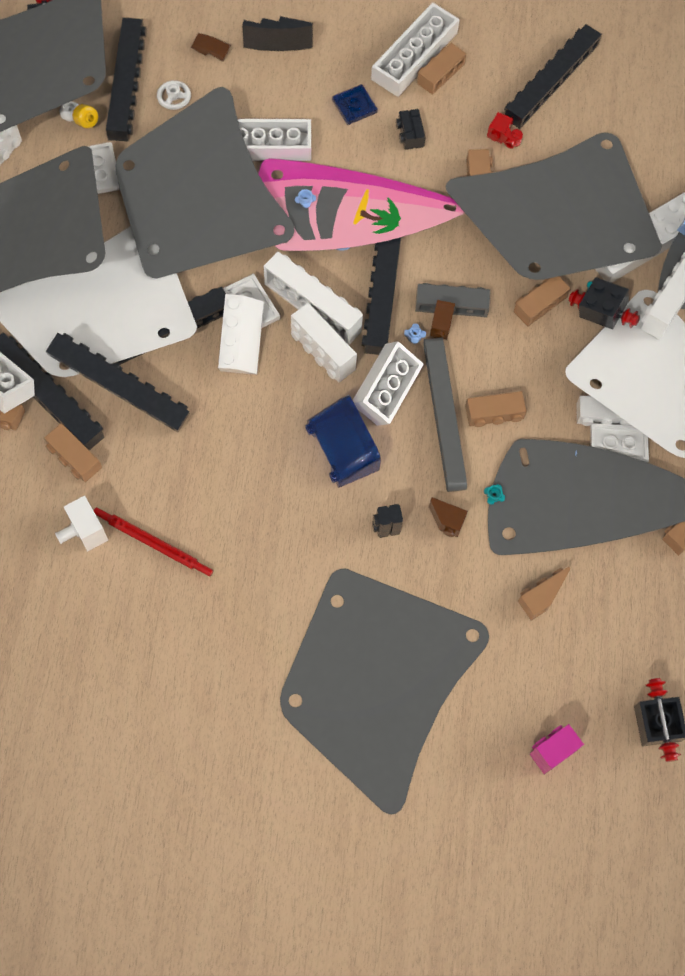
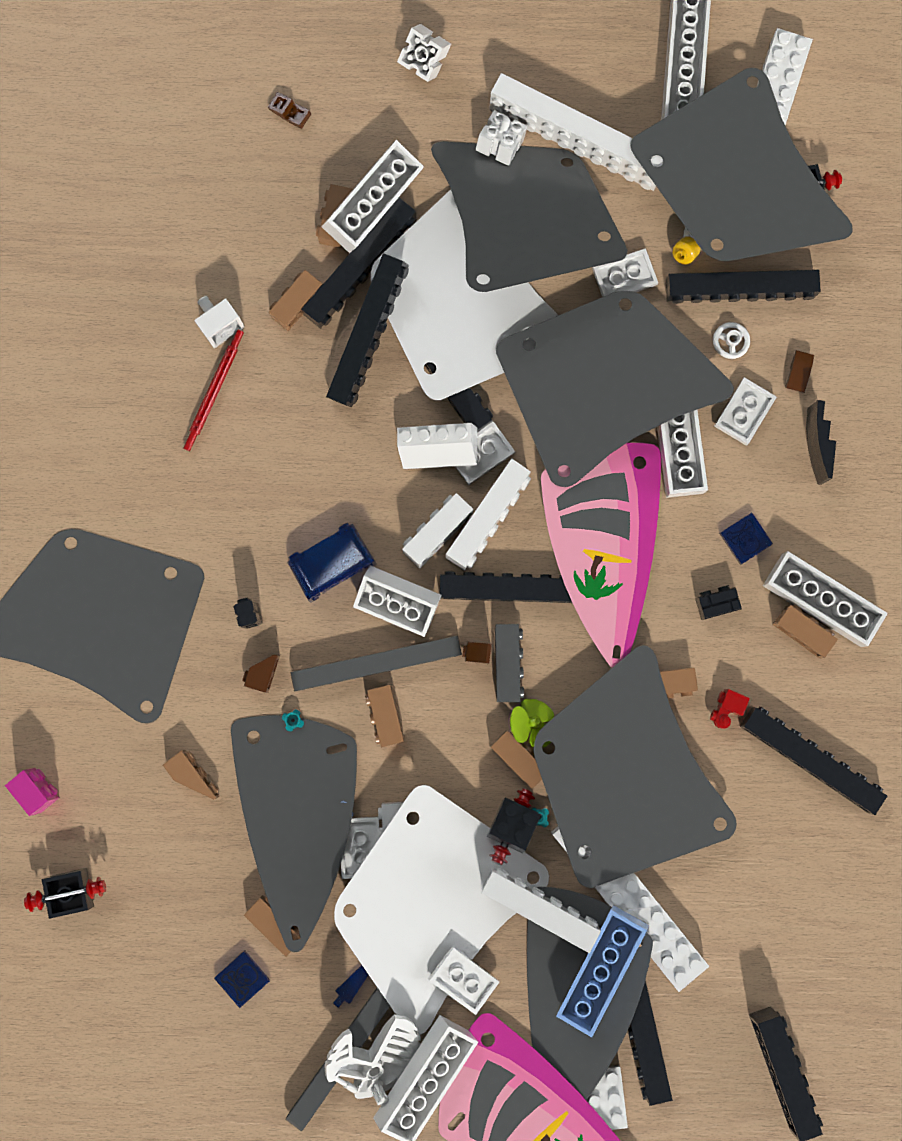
camera: 85 degrees right, 15 degrees up
(246, 91) = (745, 411): none -> white plate
(305, 198) = (606, 489): light blue plate -> none
(415, 338) = (460, 626): light blue plate -> none
(506, 286) = (530, 719): none -> lime piece

